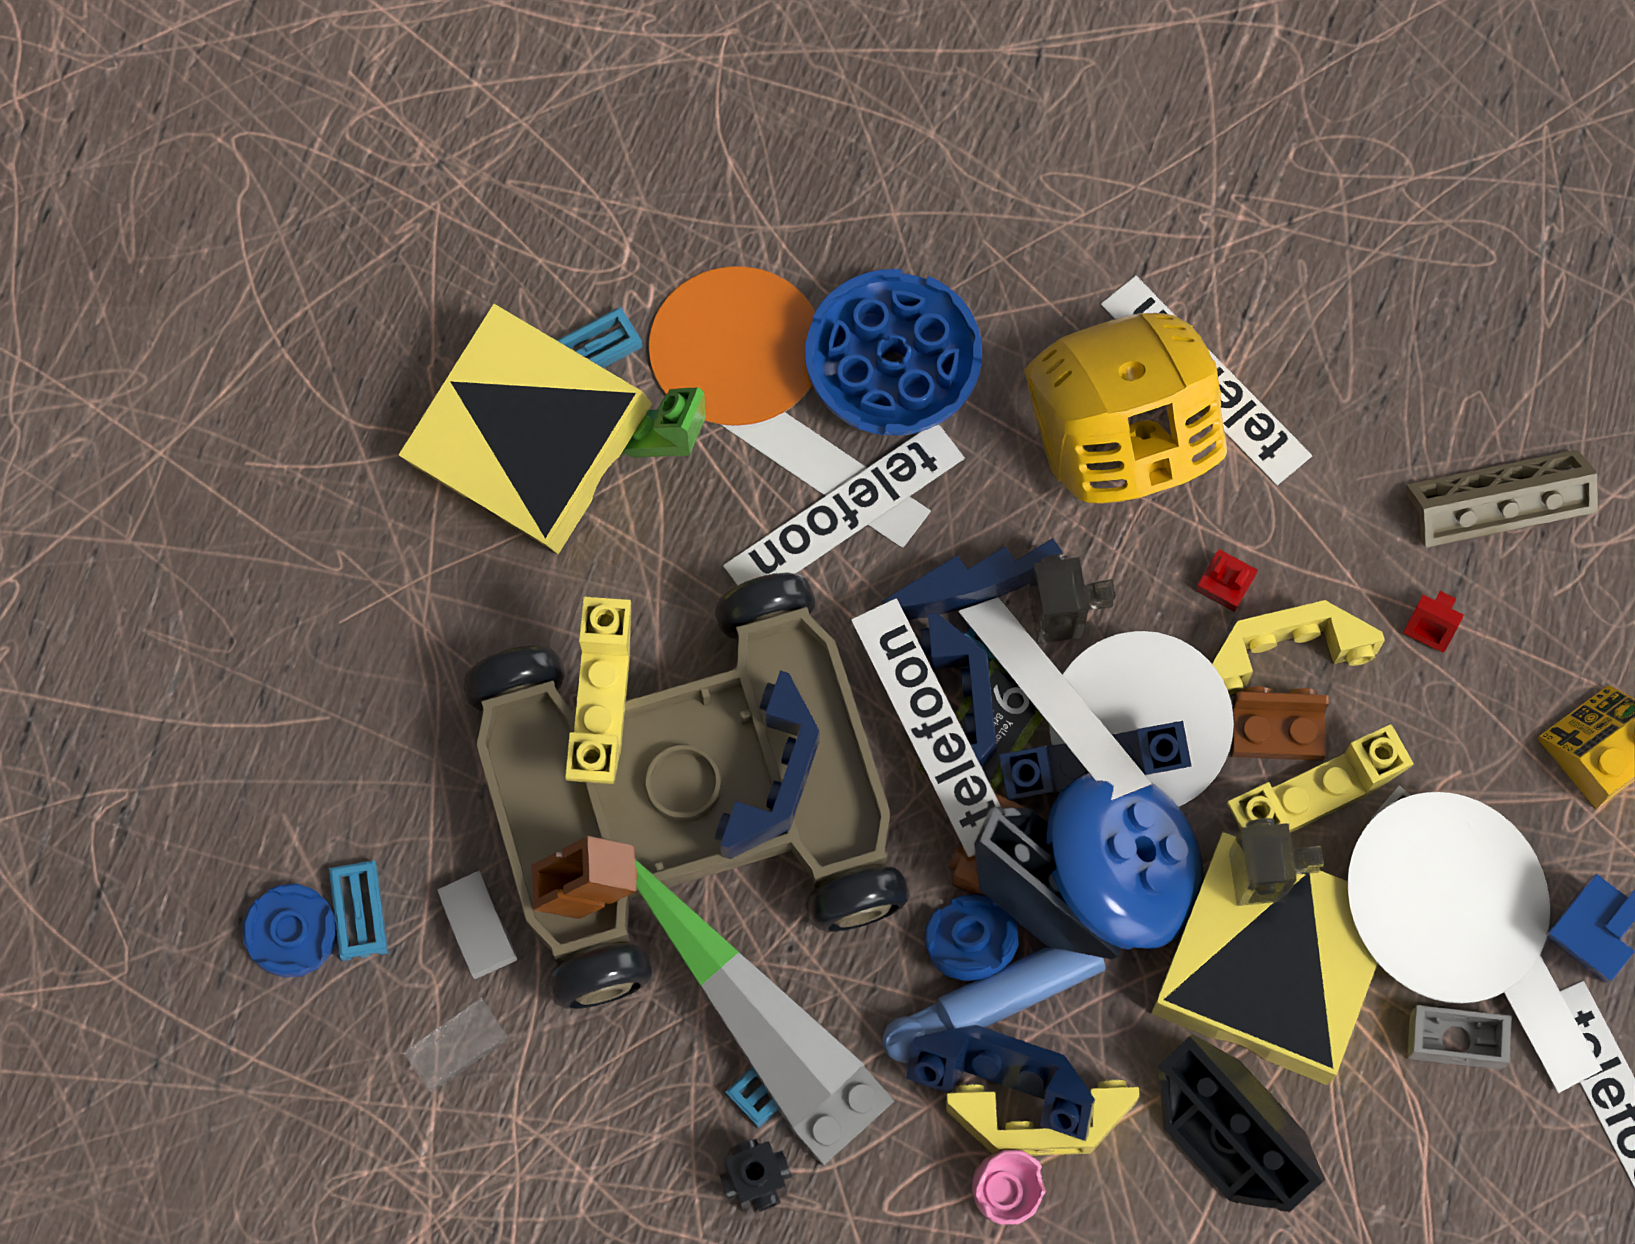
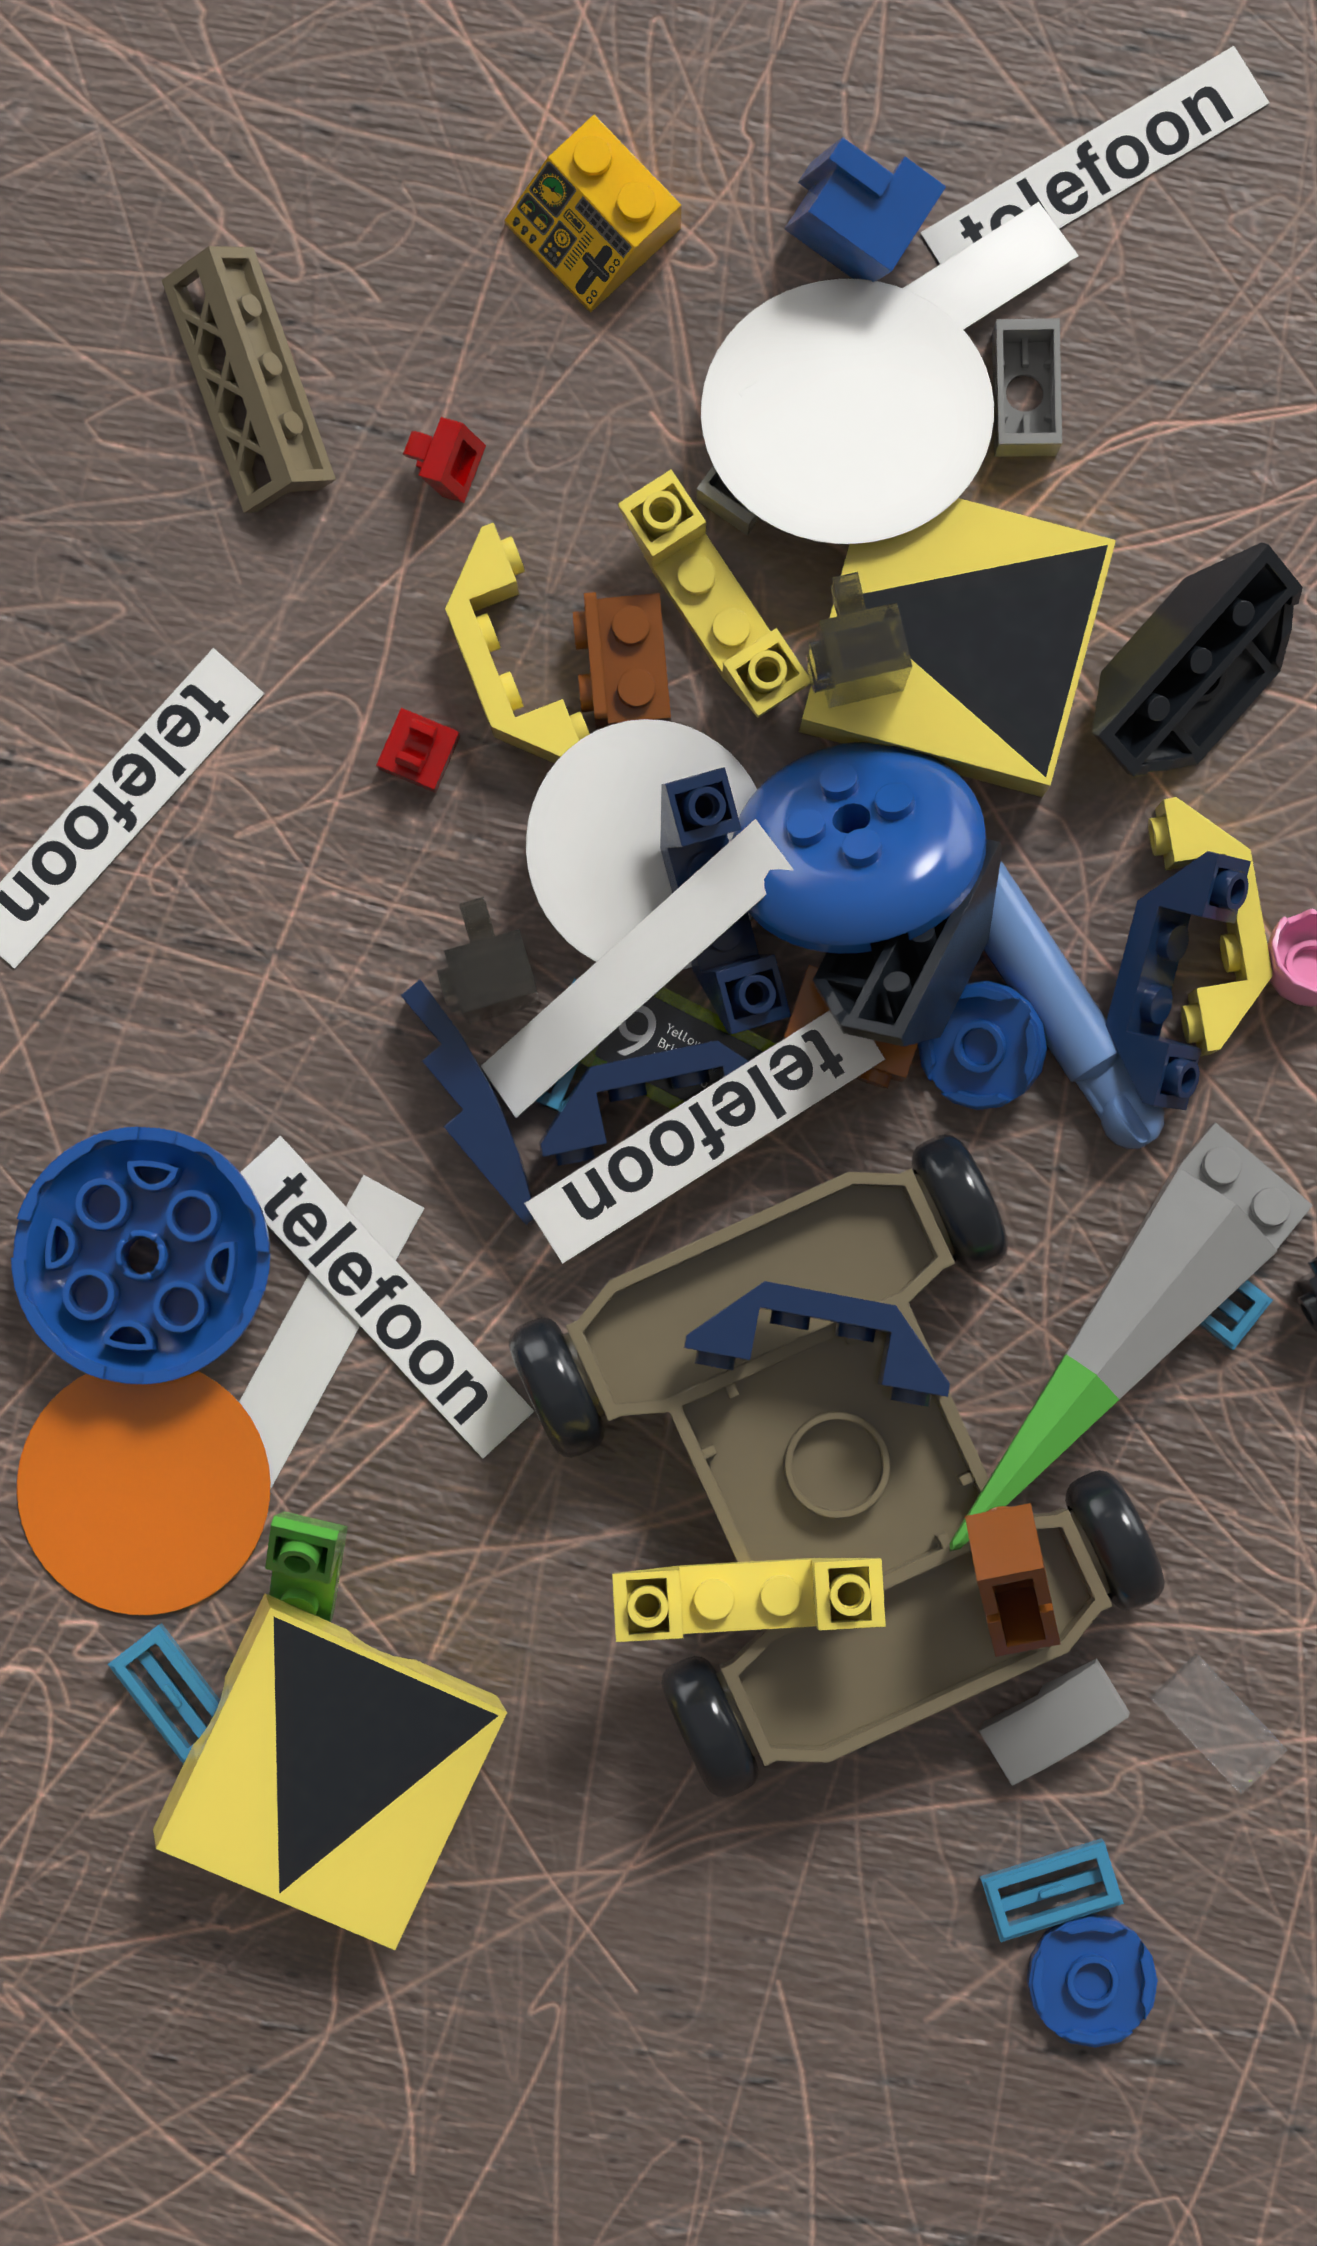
camera: 95 degrees left, 15 degrees up
(1115, 370) = (131, 948): yellow piece -> none

